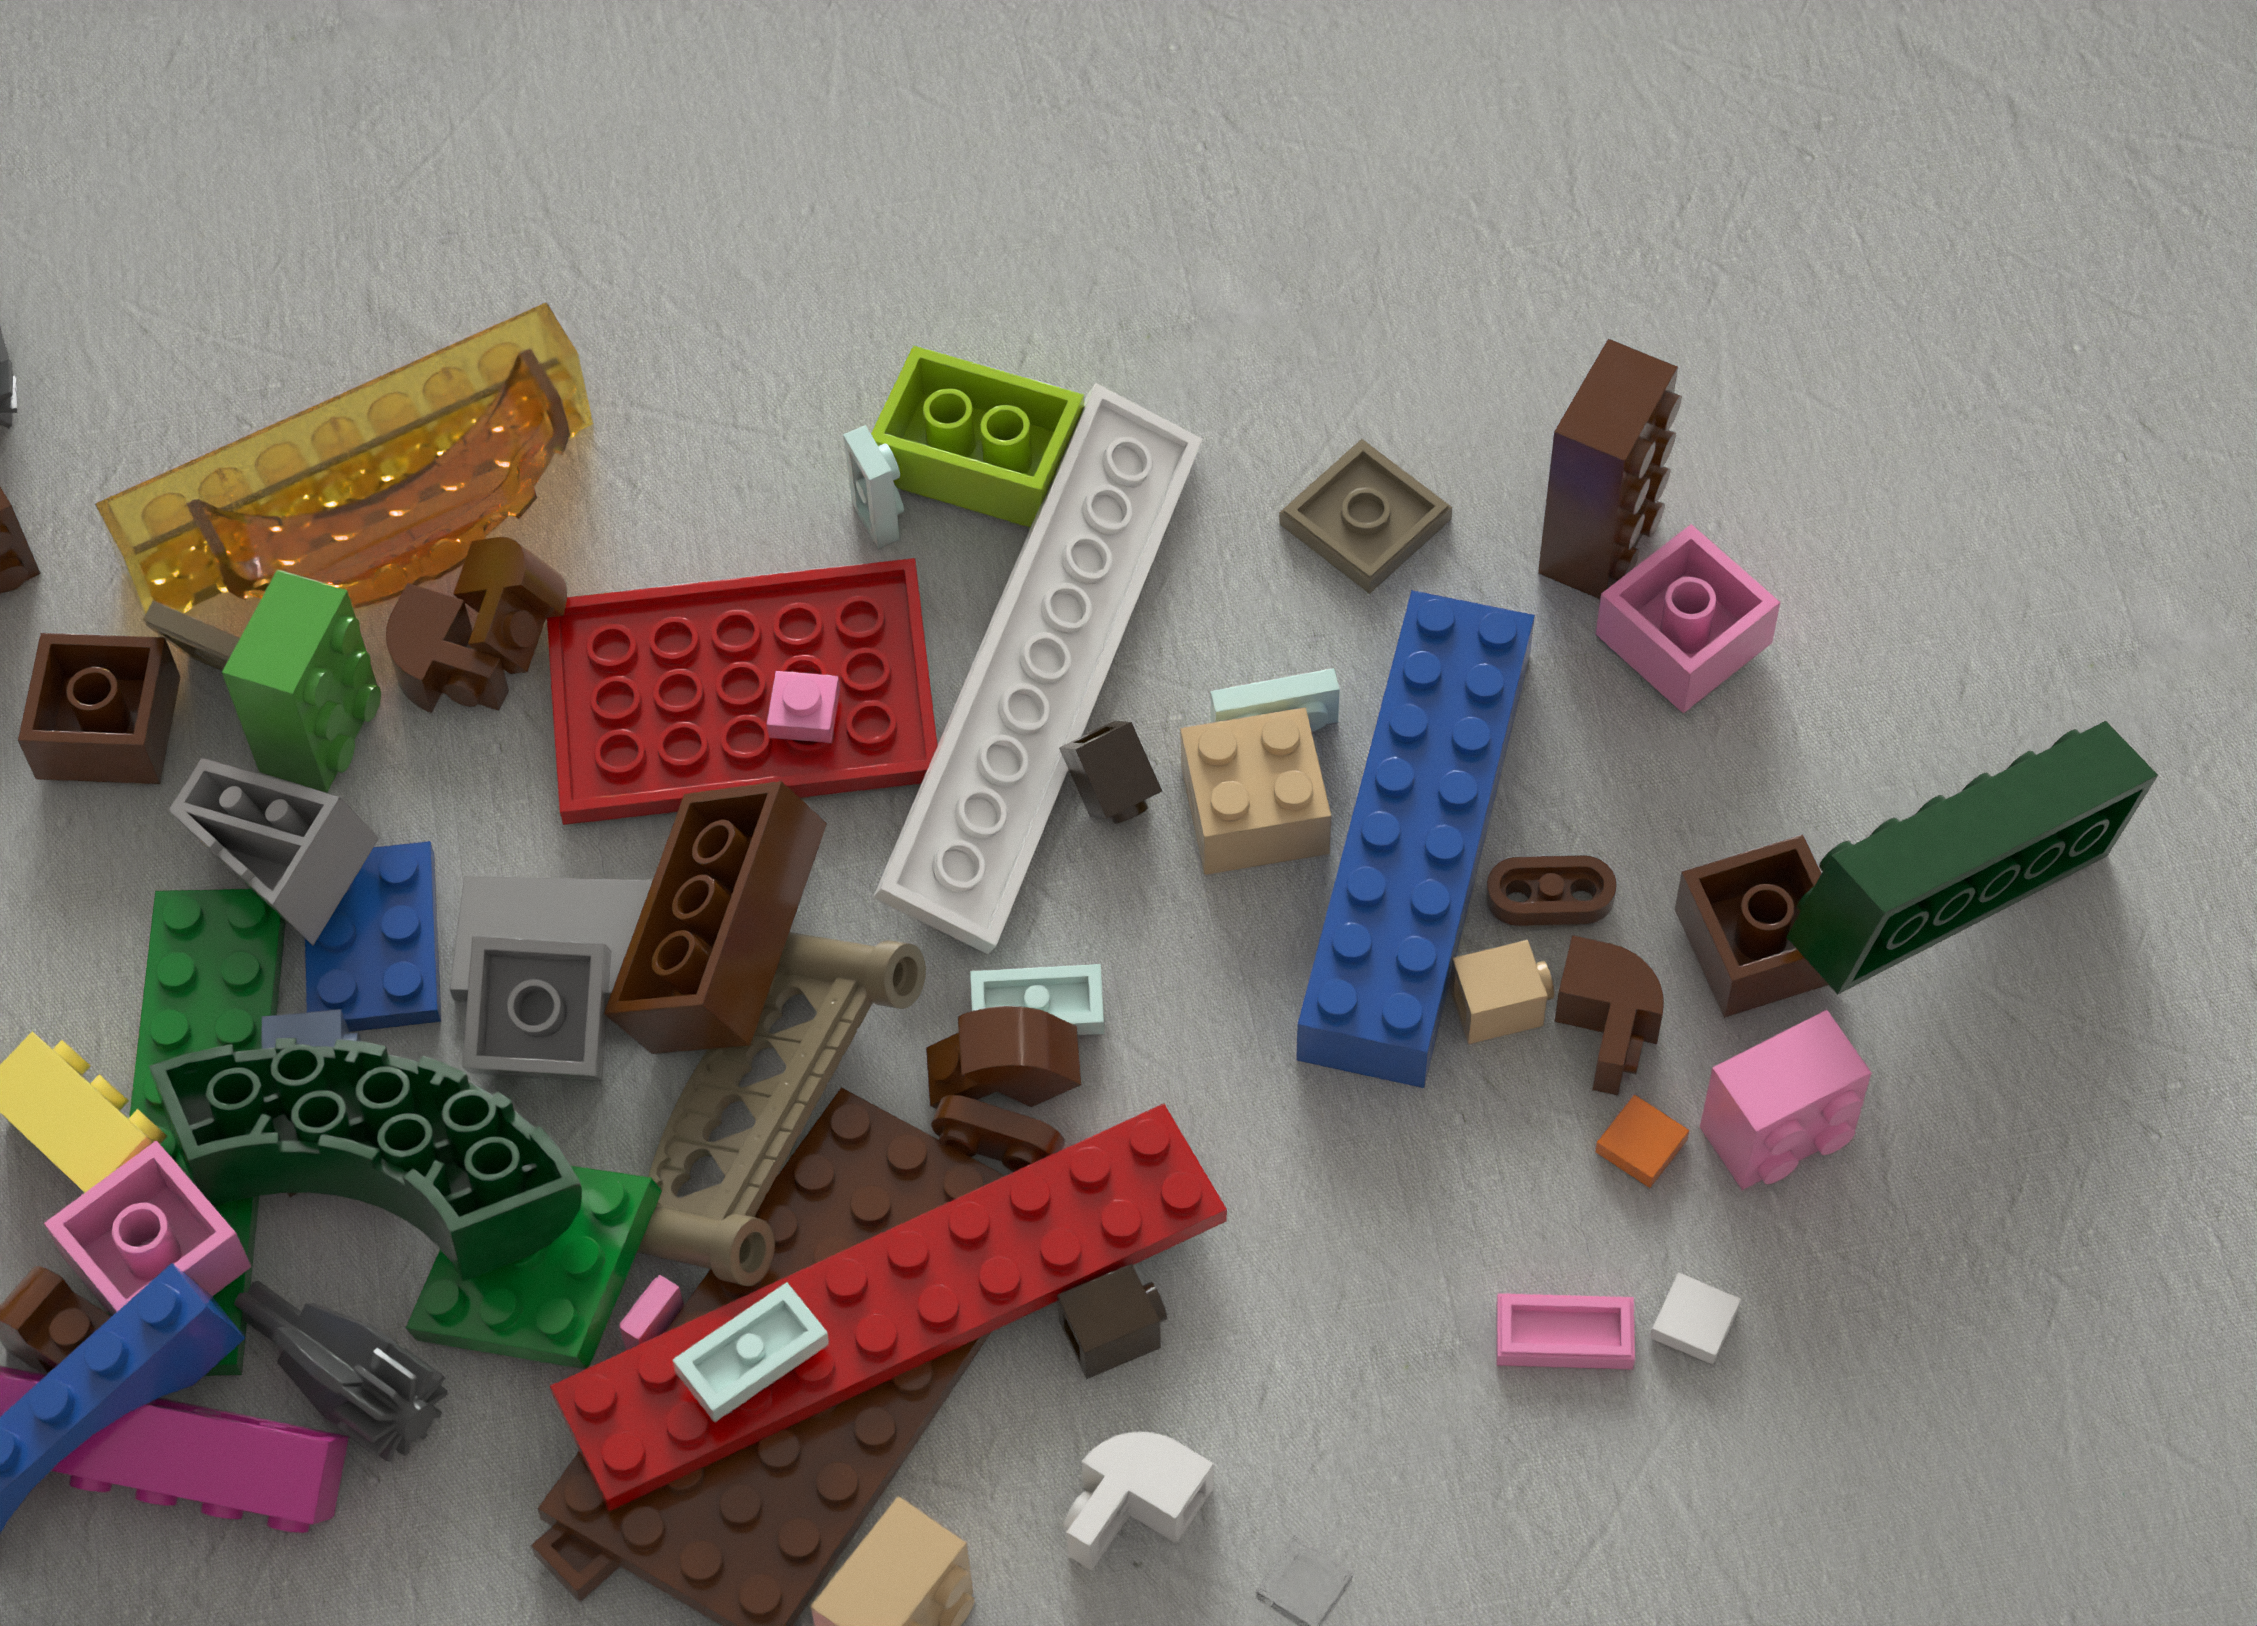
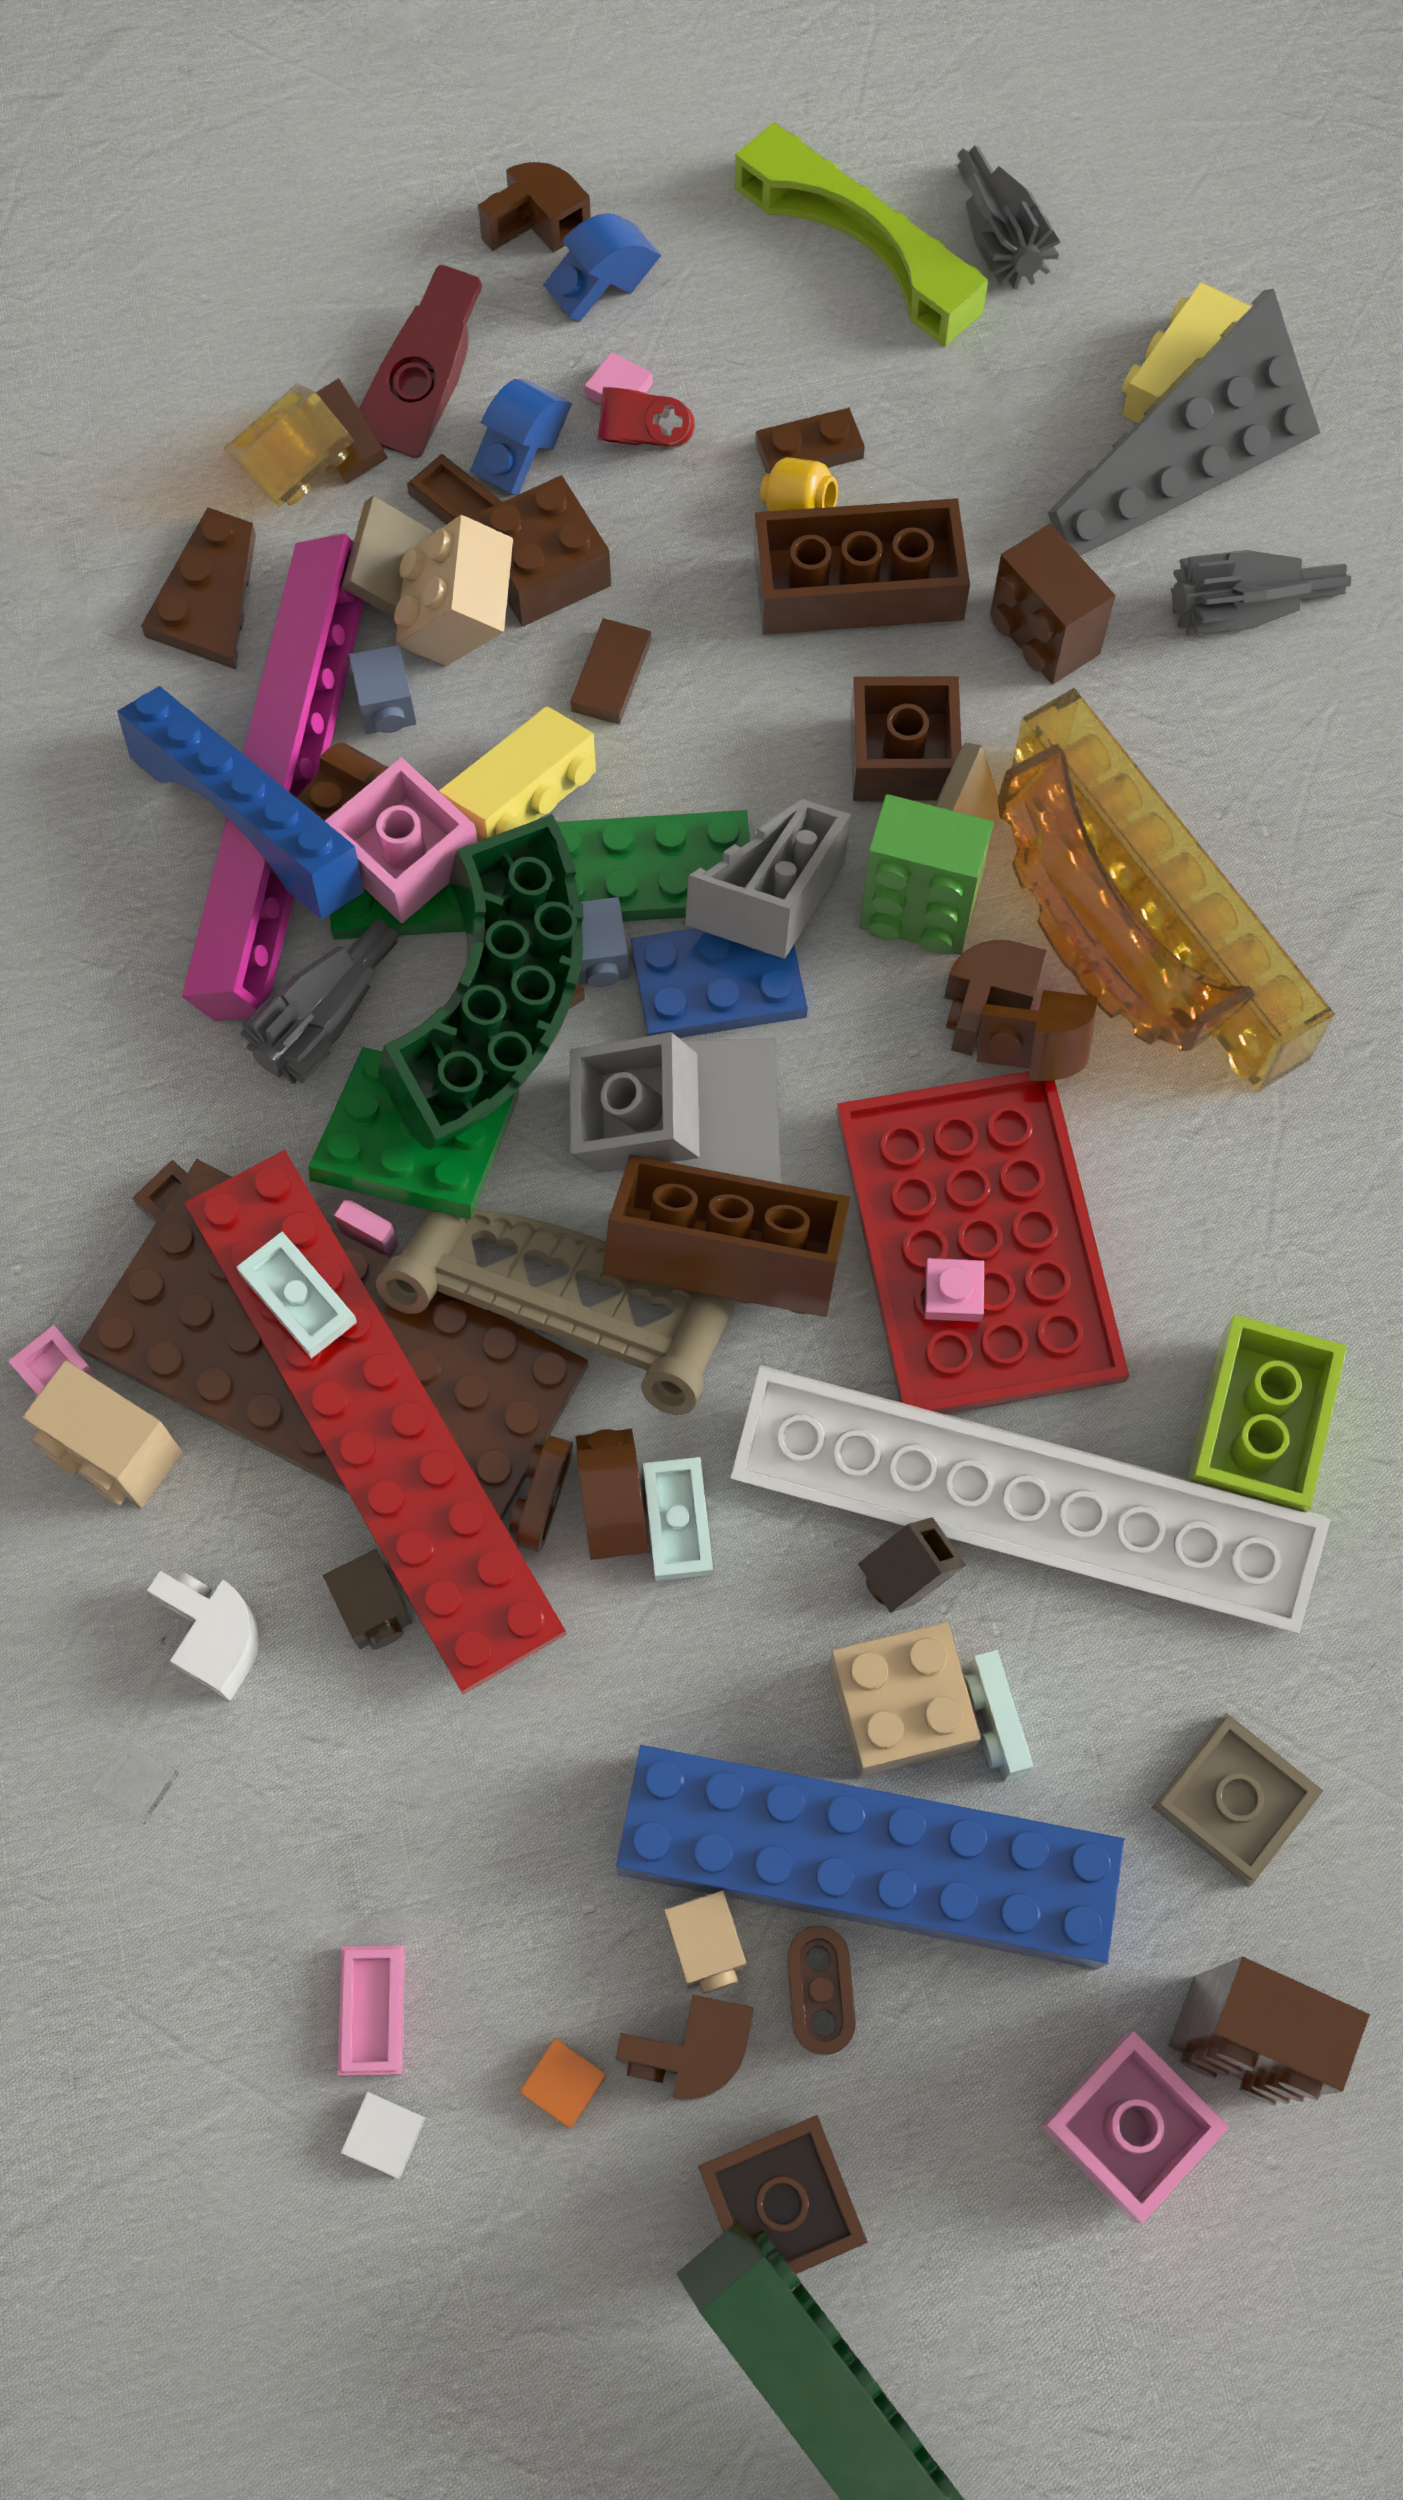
camera: 85 degrees right, 10 degrees up
(872, 485) = (1192, 1327): light aqua plate -> none
(1785, 1101) = (581, 2223): bright pink brick -> none

